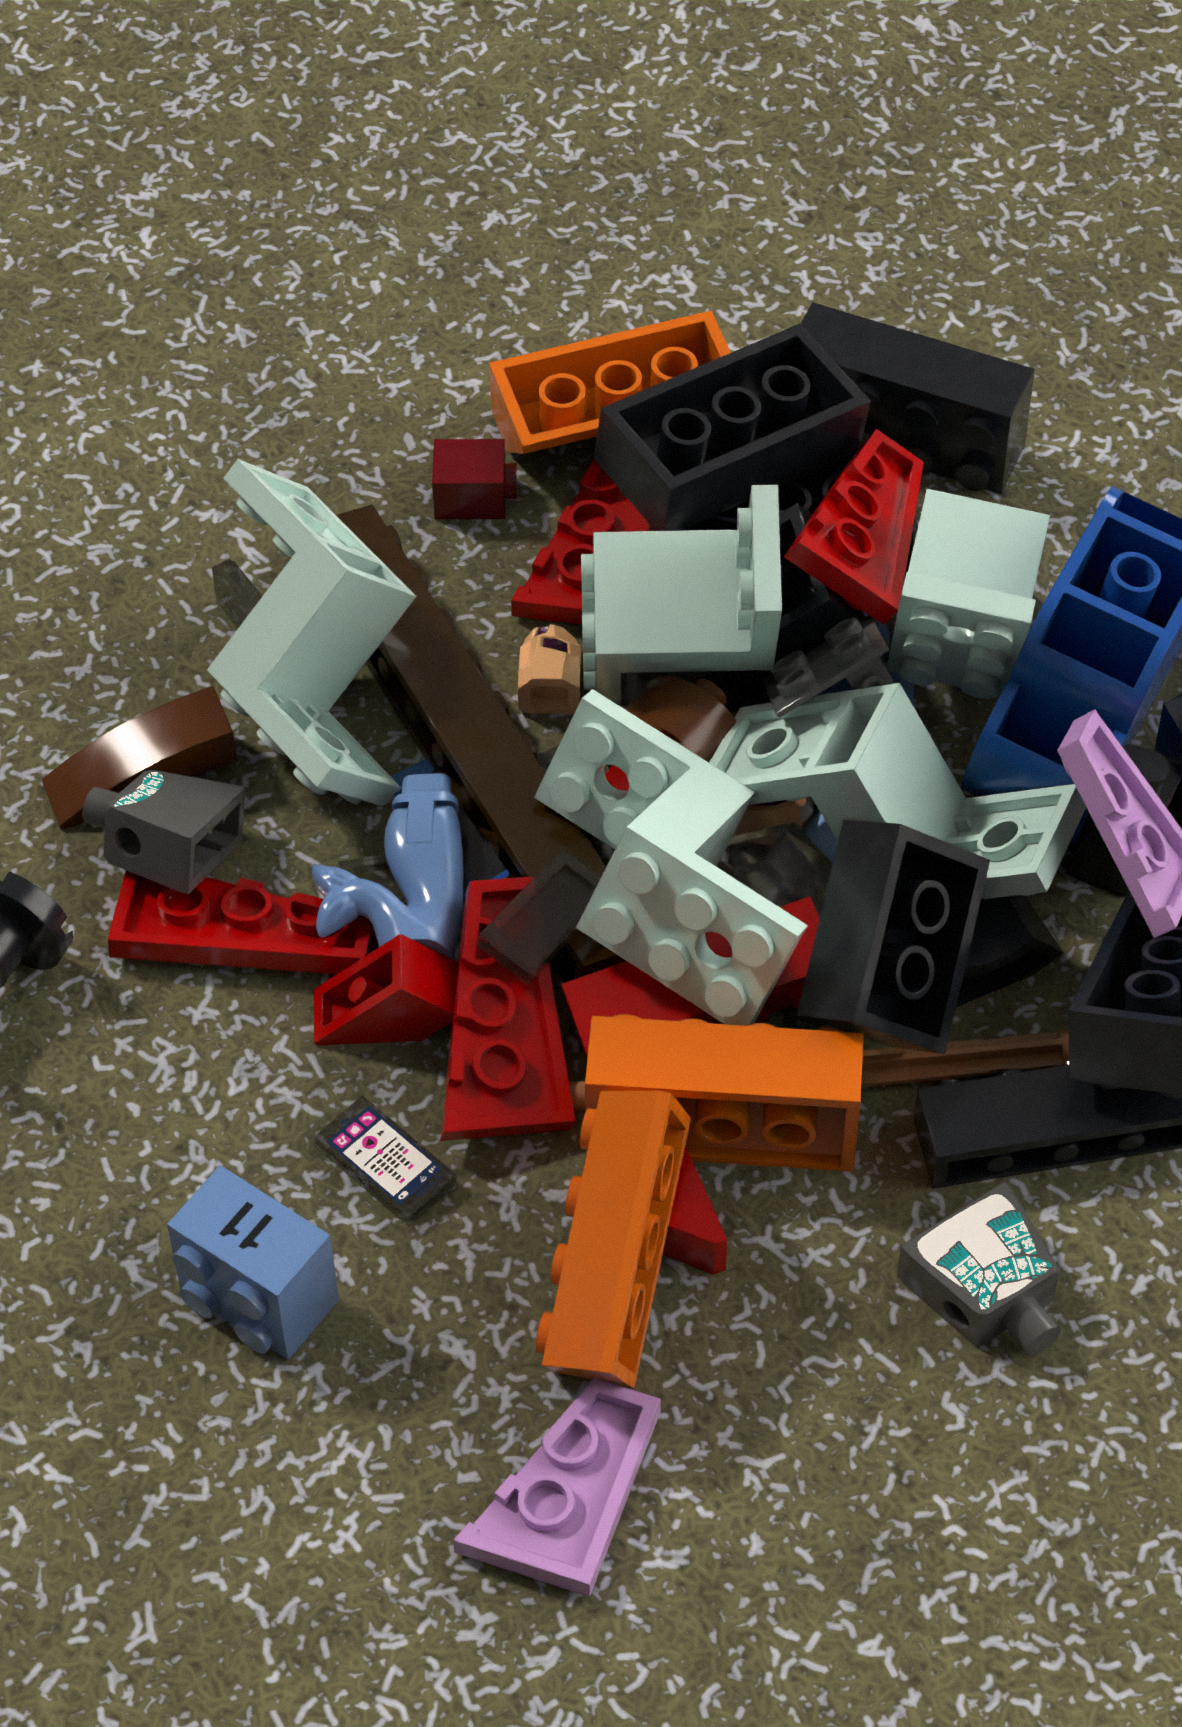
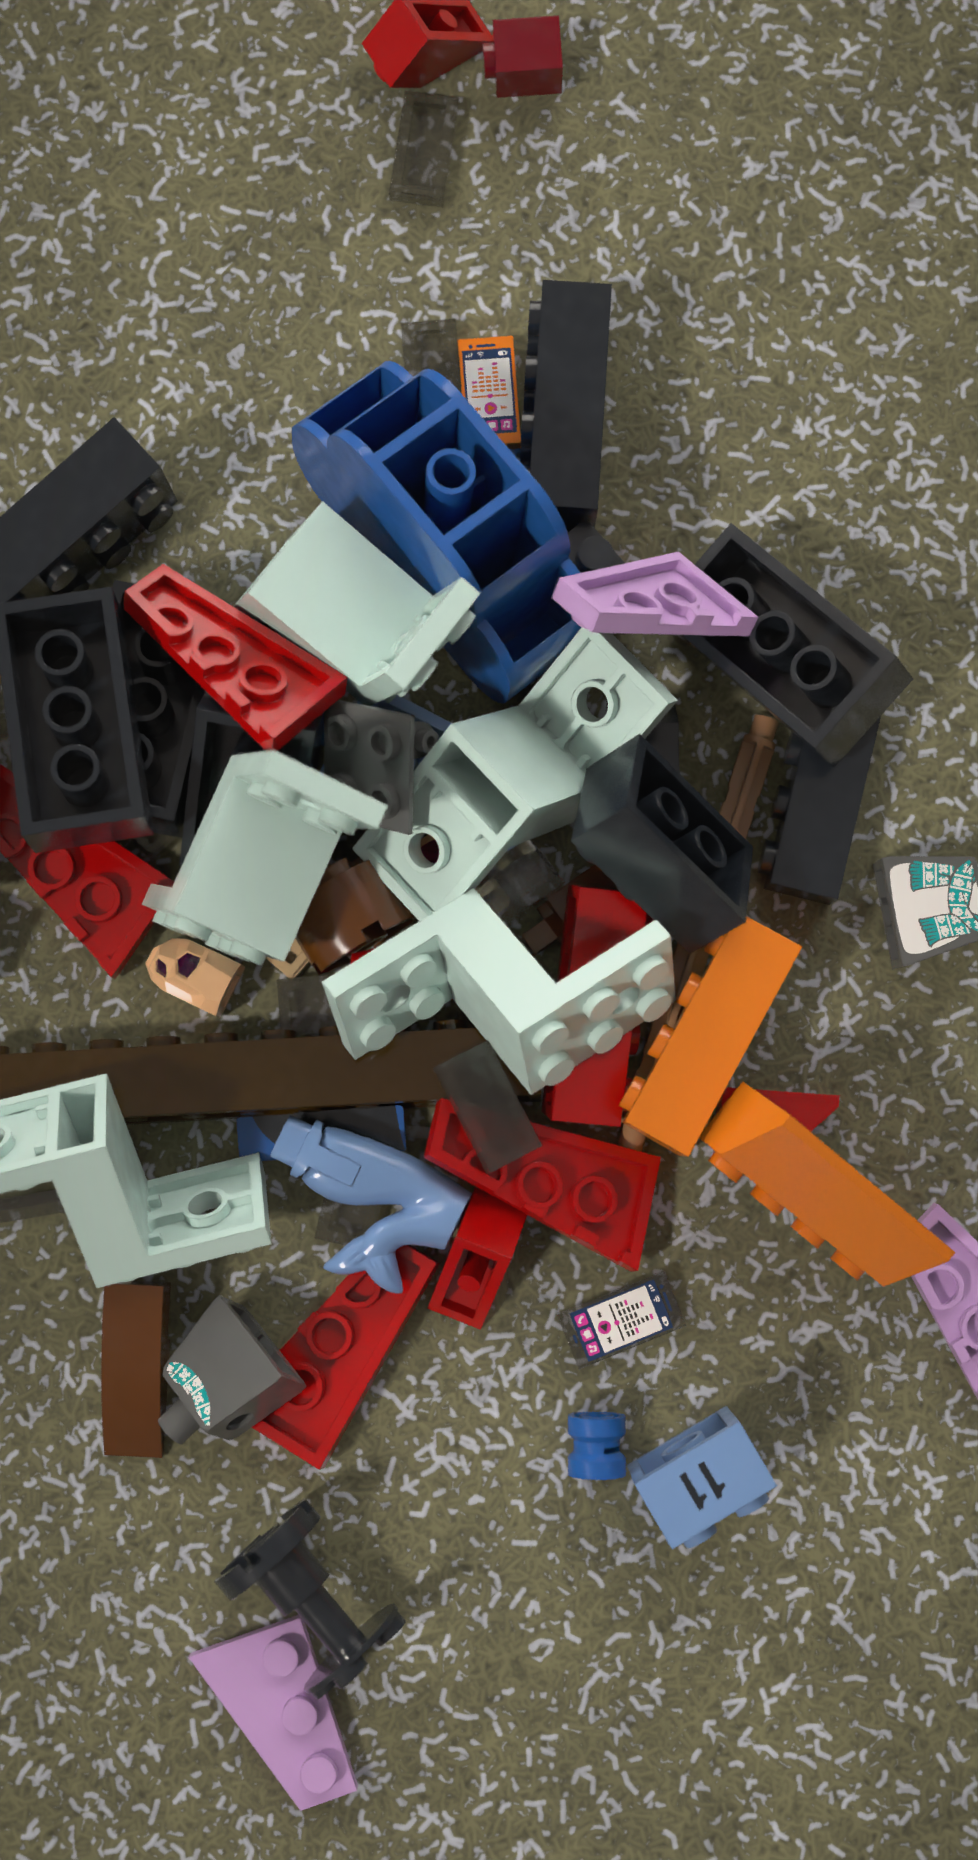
camera: 65 degrees left, 30 degrees up
(251, 1163) = (596, 1445): none -> blue wheel

